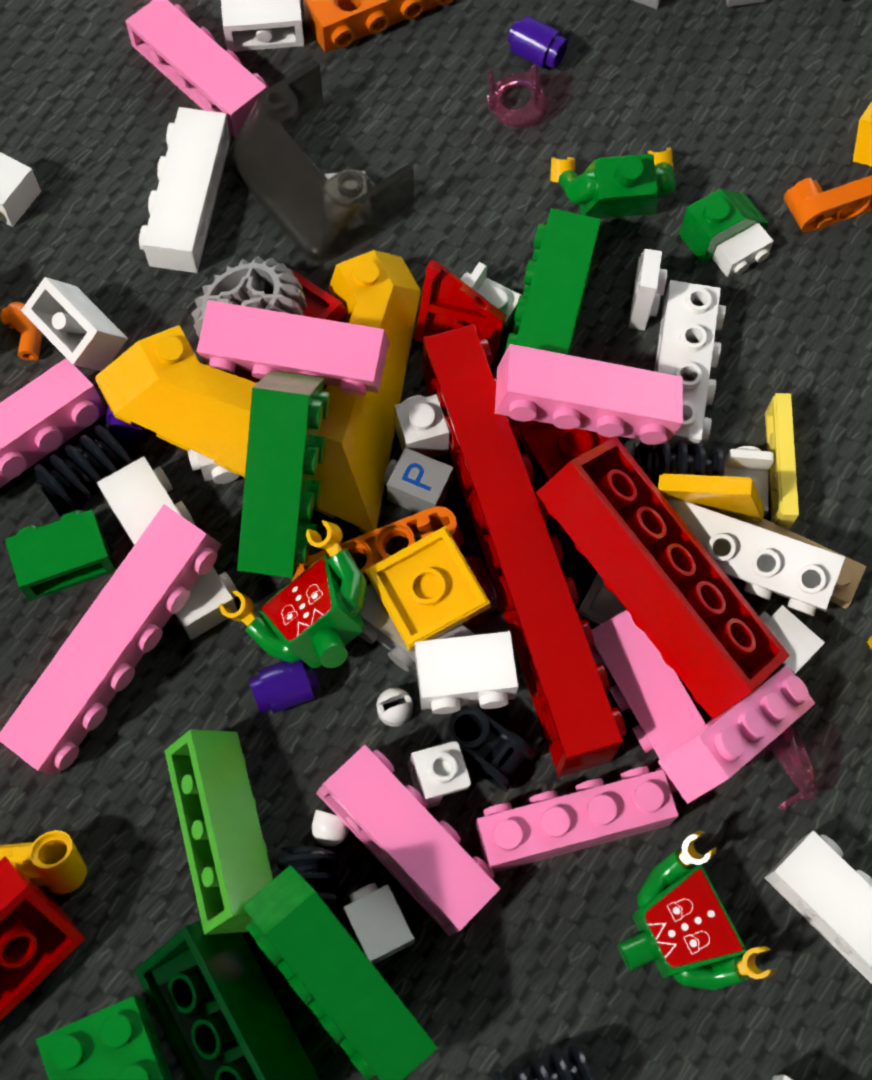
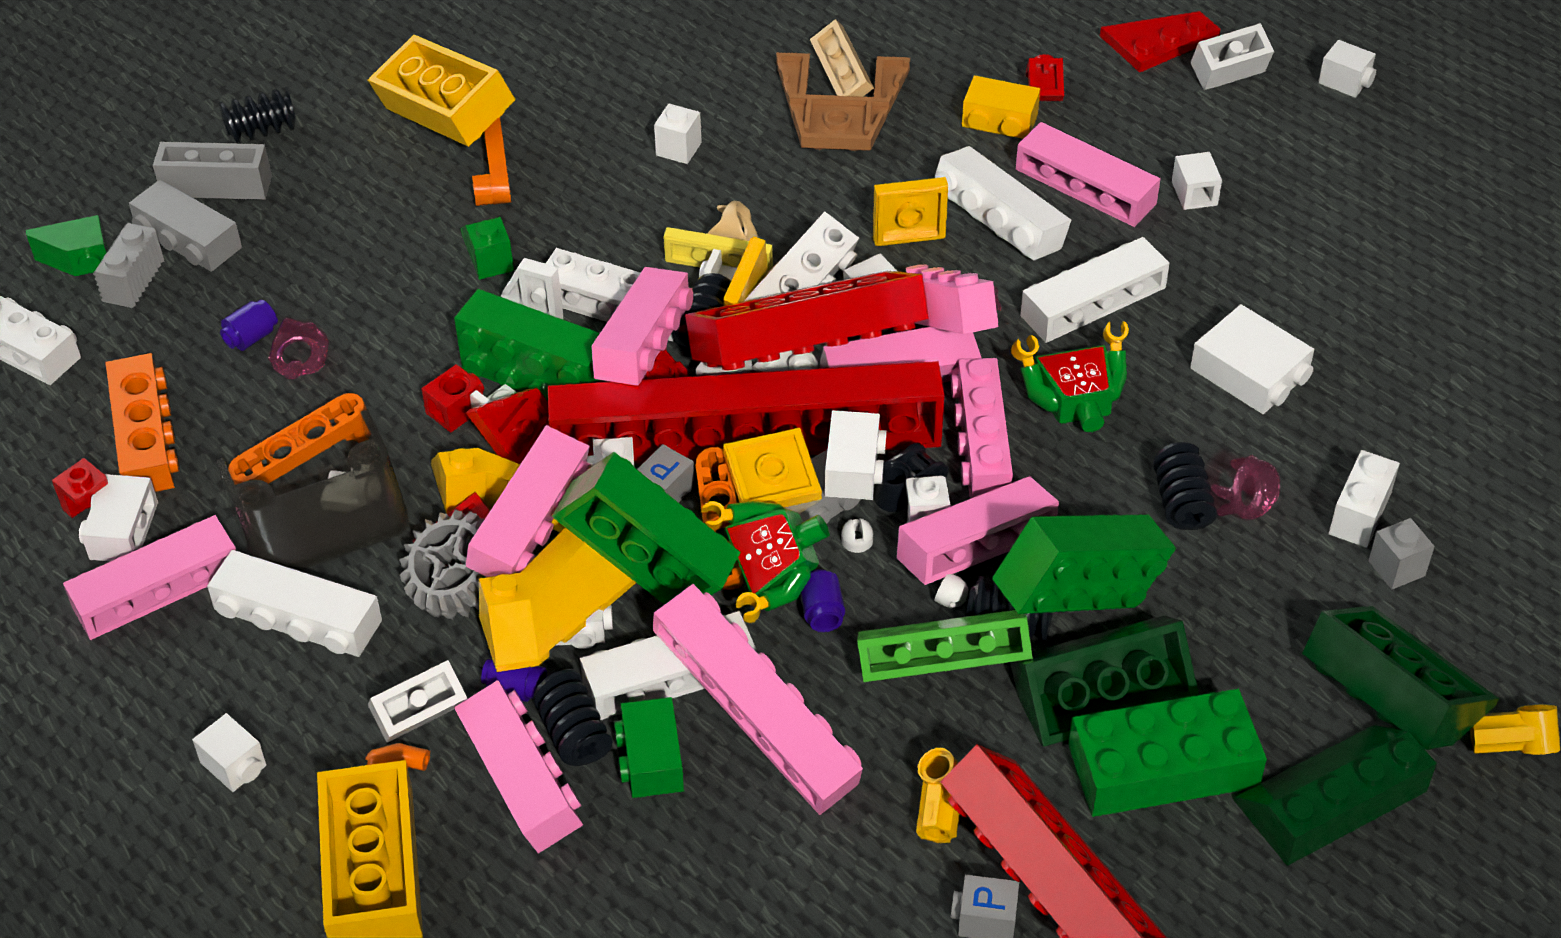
camera: 75 degrees left, 20 degrees down
(430, 168) = (349, 426): none -> orange beam
(482, 238) = (449, 397): none -> red brick
(617, 184) = (431, 293): green torso -> none
(742, 250) = (520, 241): white piece -> none
(809, 457) = (732, 225): none -> tan piece

